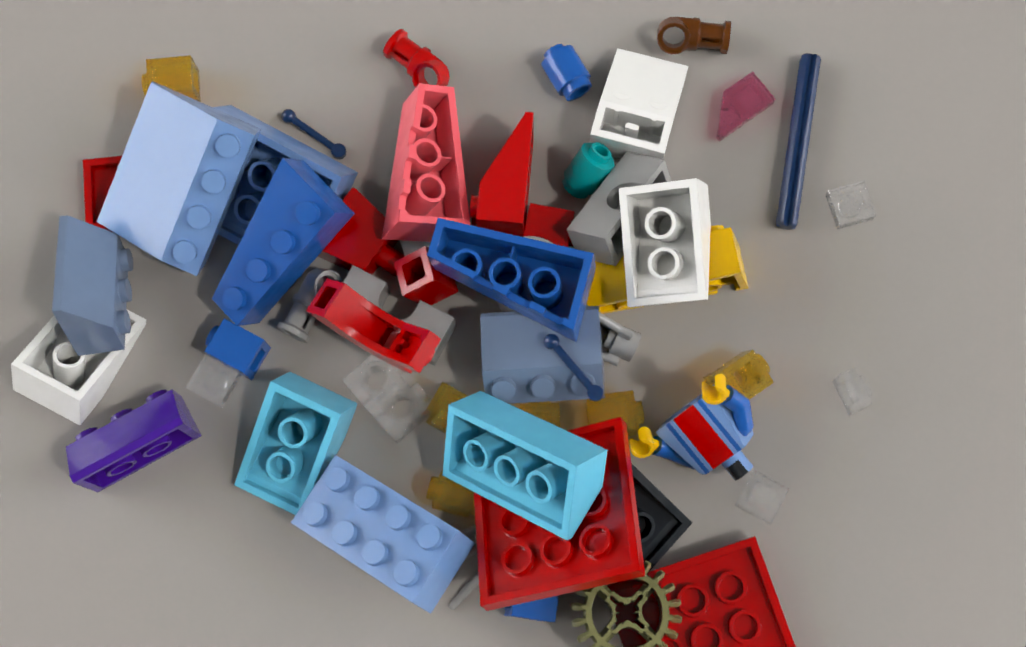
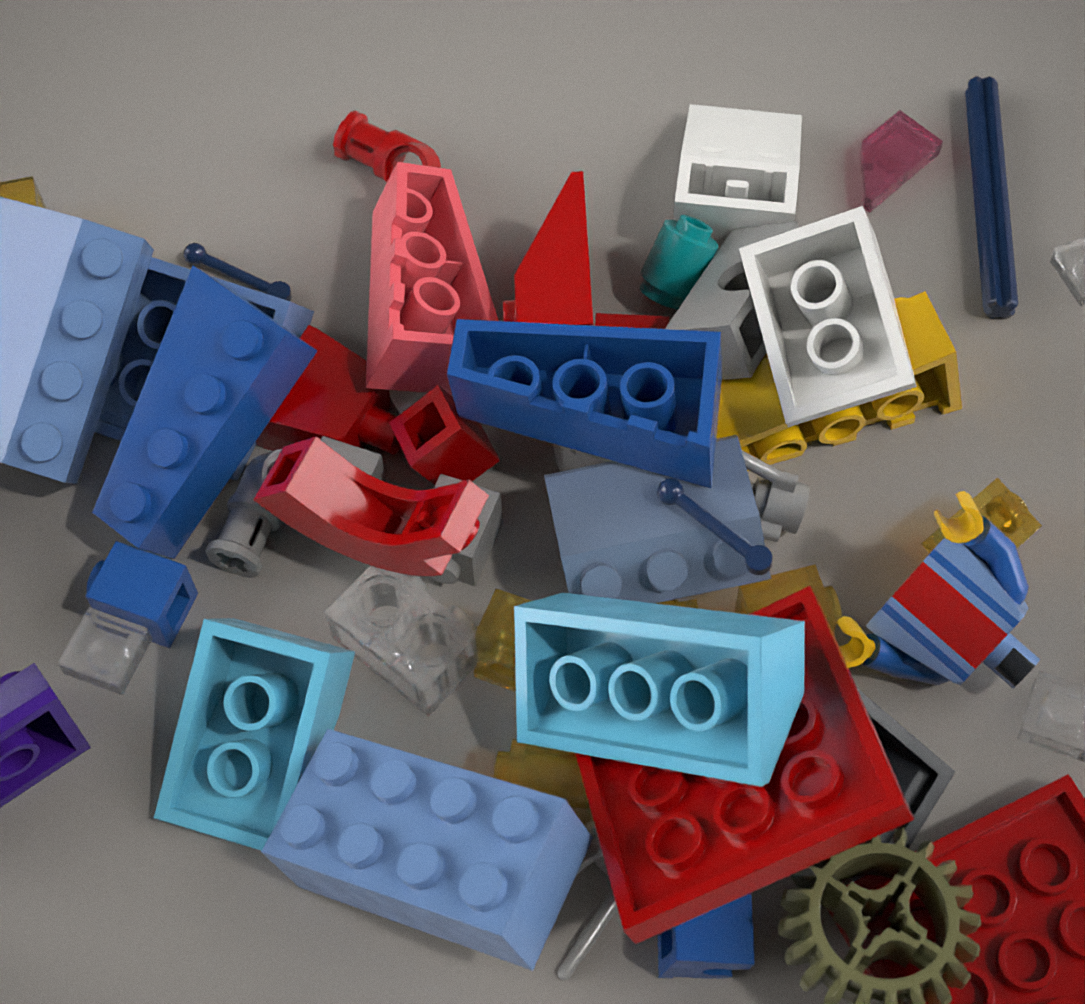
camera: 10 degrees left, 15 degrees down
(566, 72) = (619, 141): blue brick -> none
(697, 35) = (802, 69): reddish brown connector -> none

